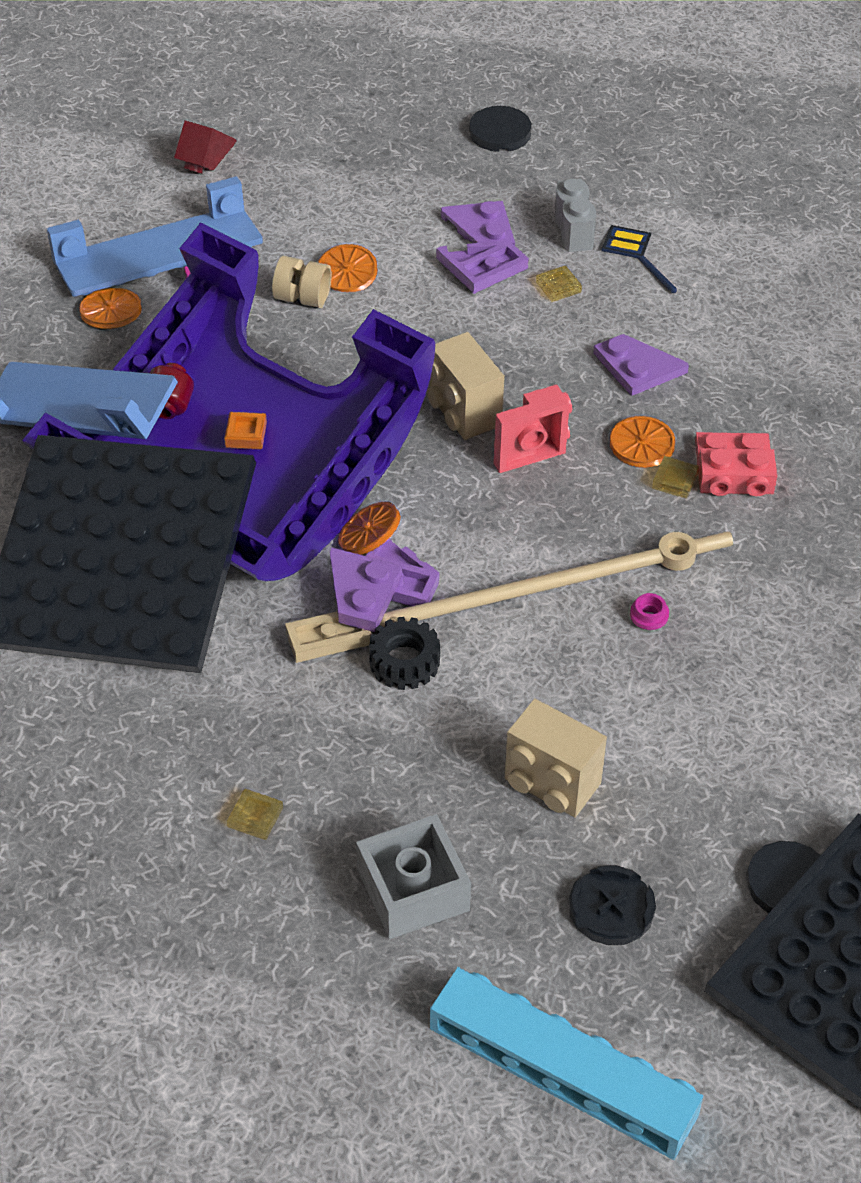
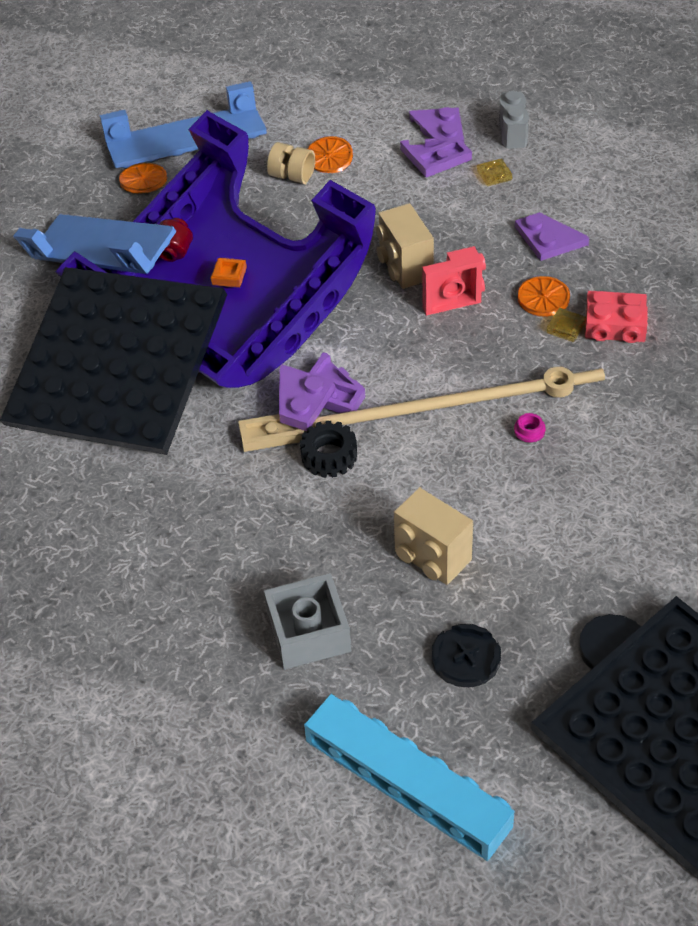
camera: 10 degrees right, 0 degrees up
(202, 147) = (230, 59): dark red slope -> none
(255, 814) = (194, 565): clear yellow tile -> none
(369, 528) = (315, 351): orange wheel -> none
(500, 128) = (465, 53): black tile -> none
(633, 244) = (558, 144): piece -> none

